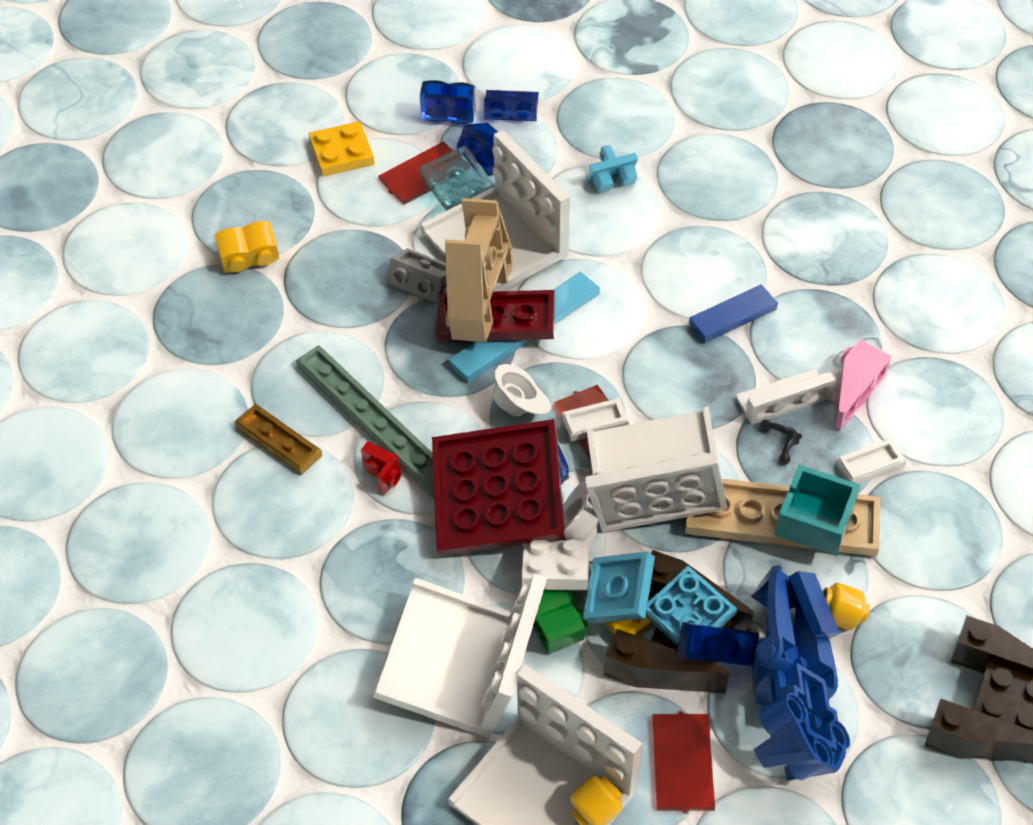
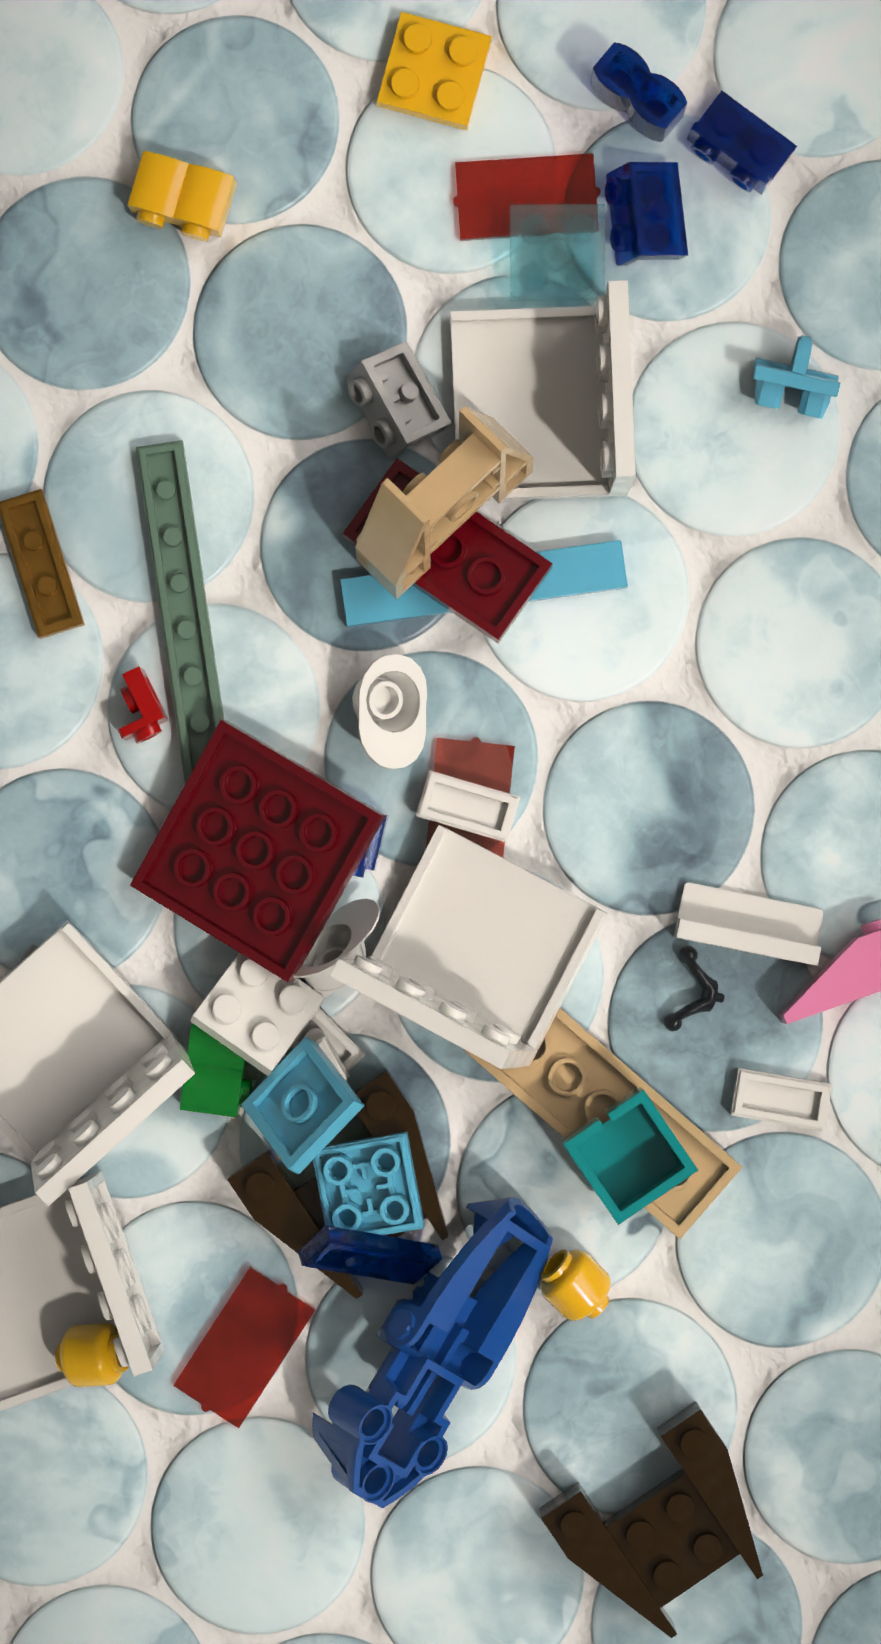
camera: 30 degrees right, 35 degrees up
(733, 313) = (782, 746): blue tile -> none
(813, 605) = (526, 1277): blue tile -> none

